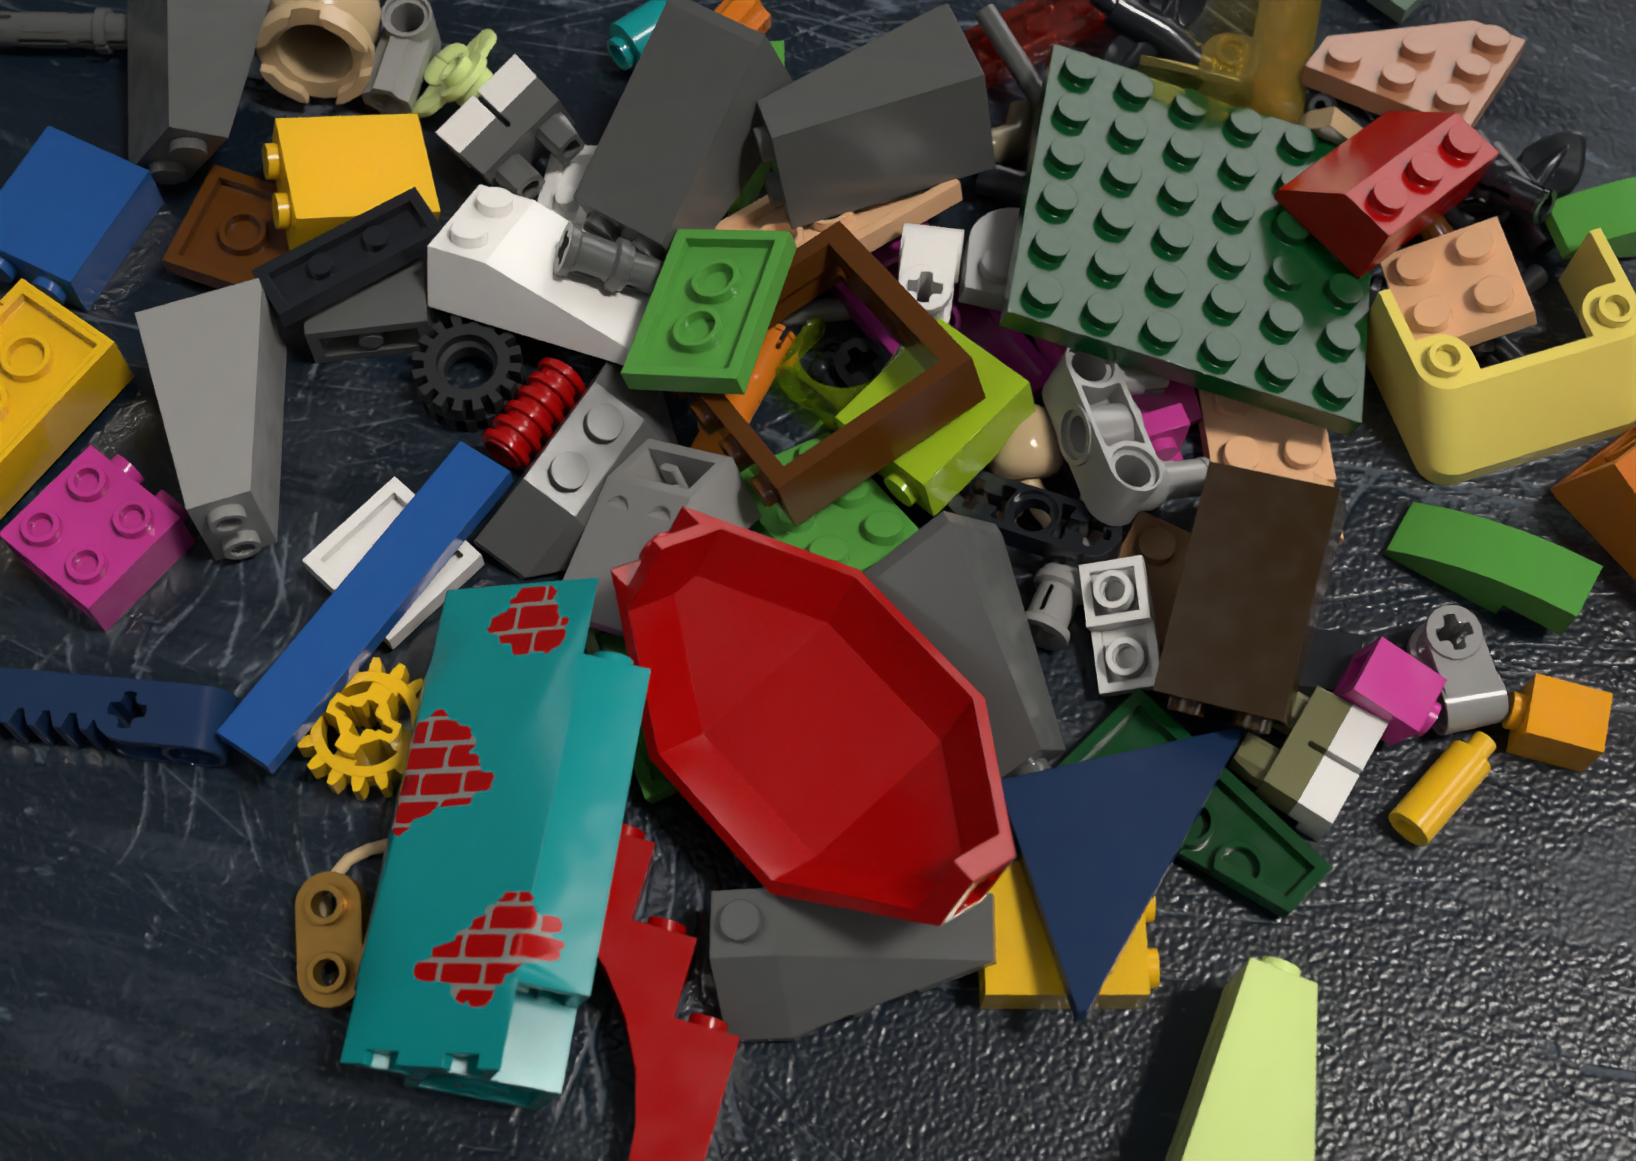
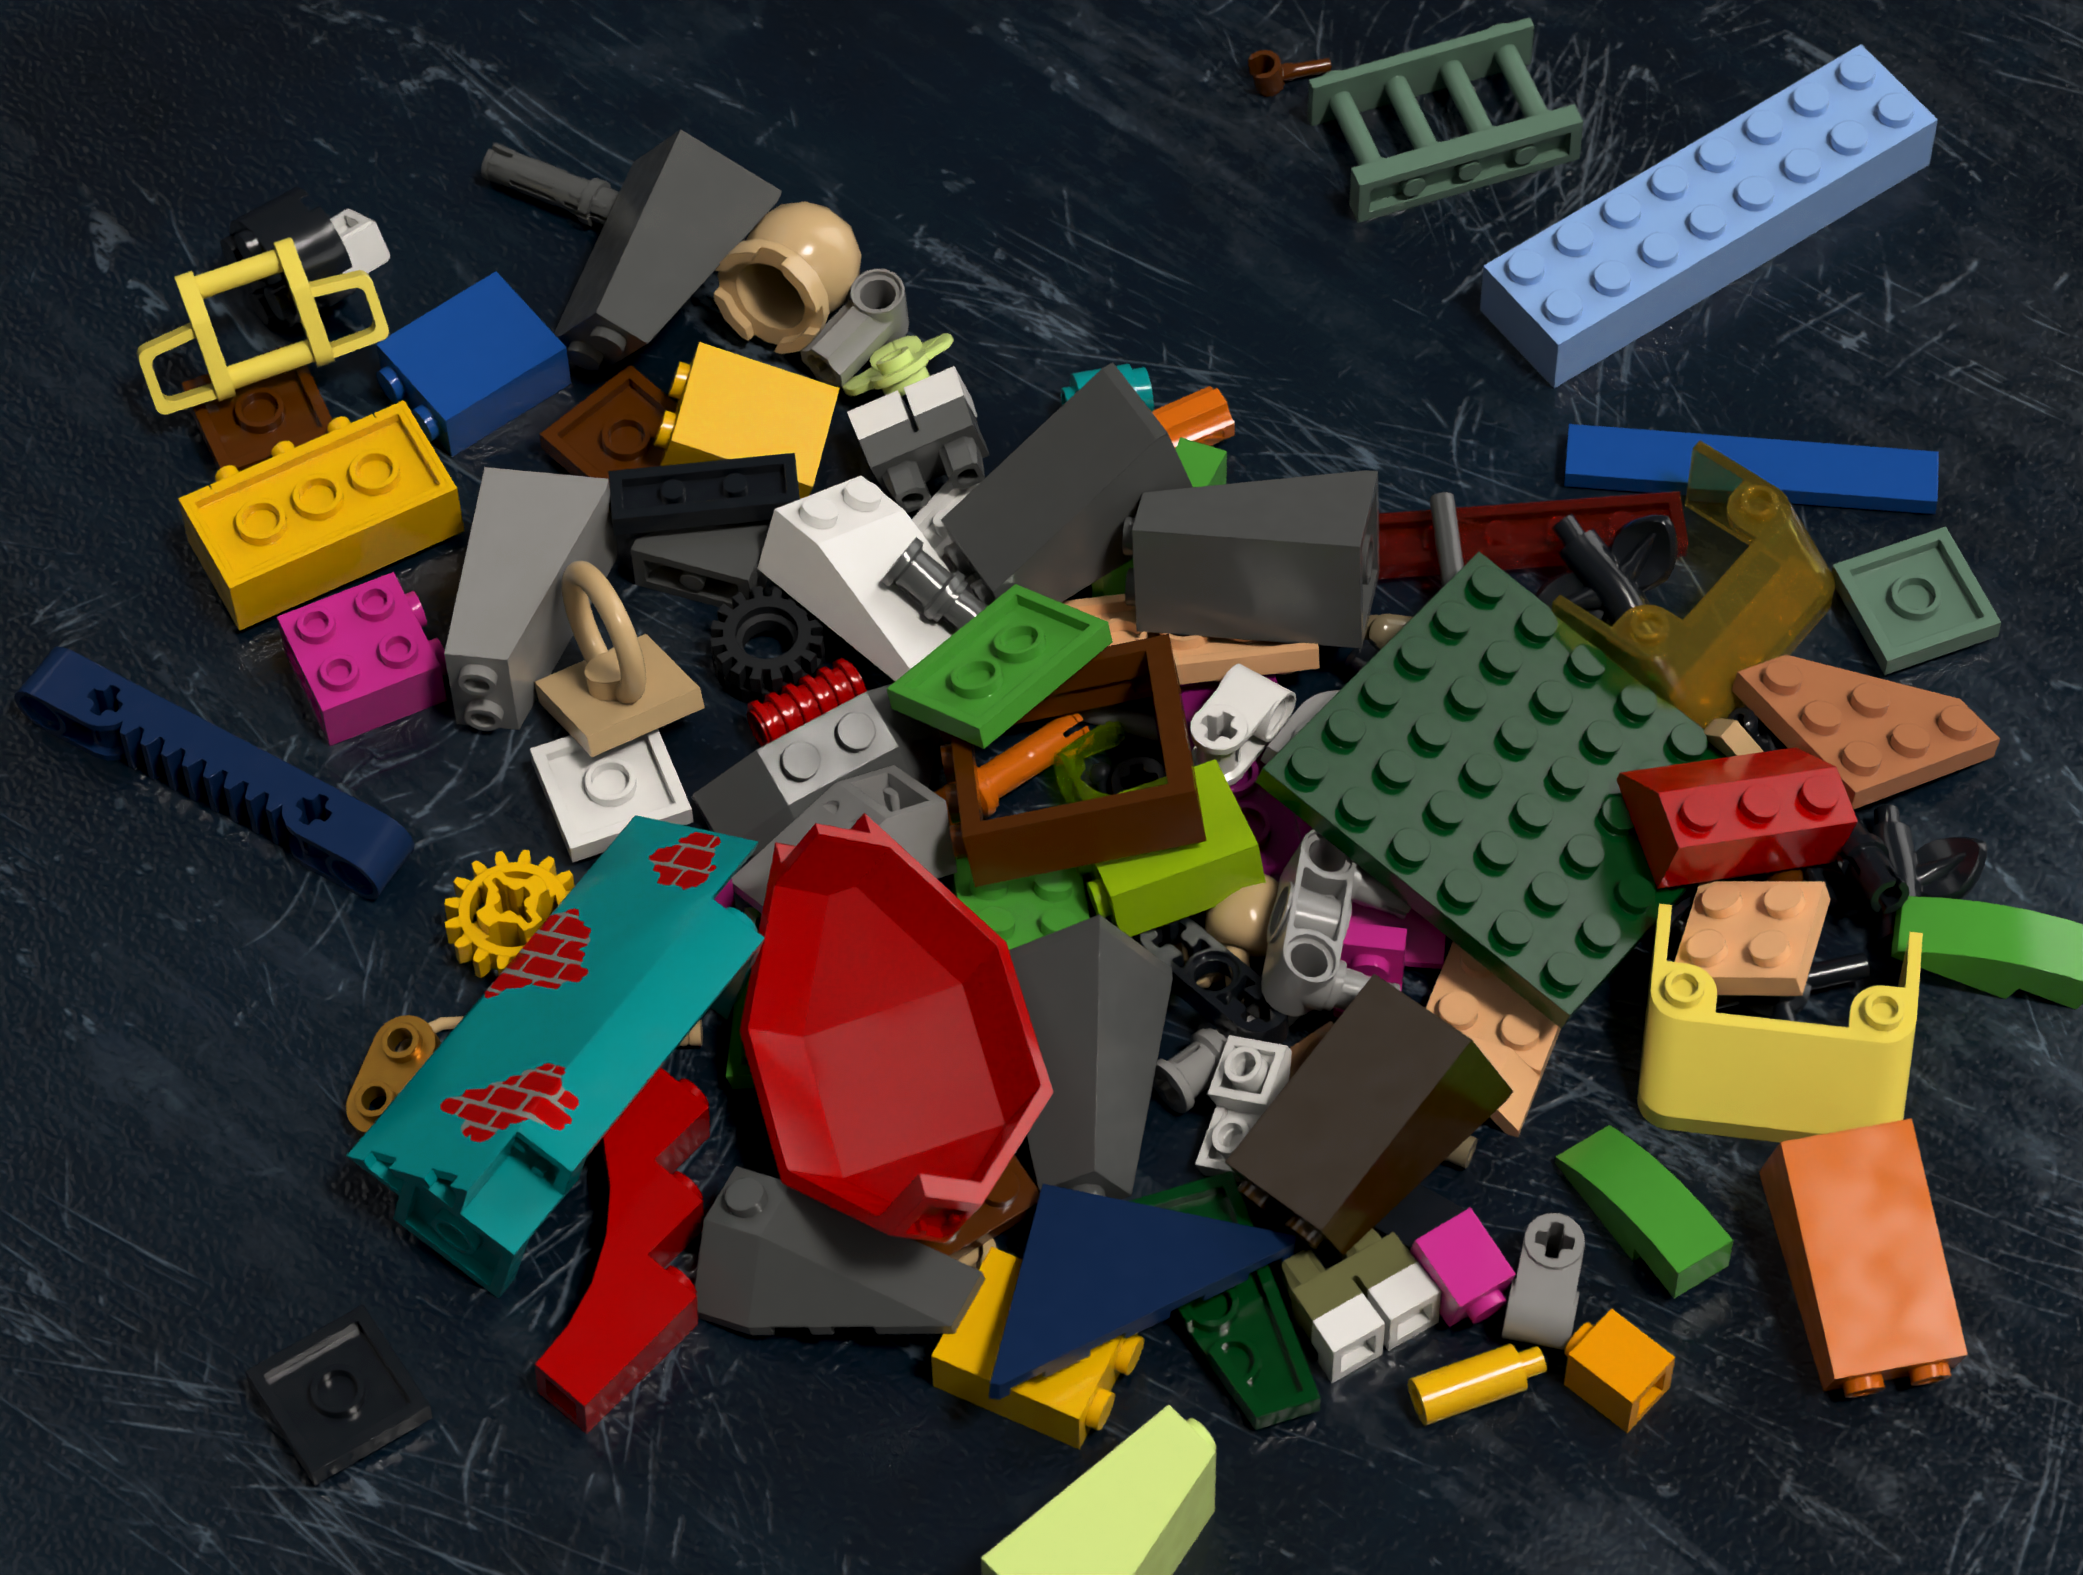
camera: 30 degrees right, 10 degrees down
(355, 471) = (614, 690): none -> tan tile
(365, 608) = (566, 807): blue tile -> none

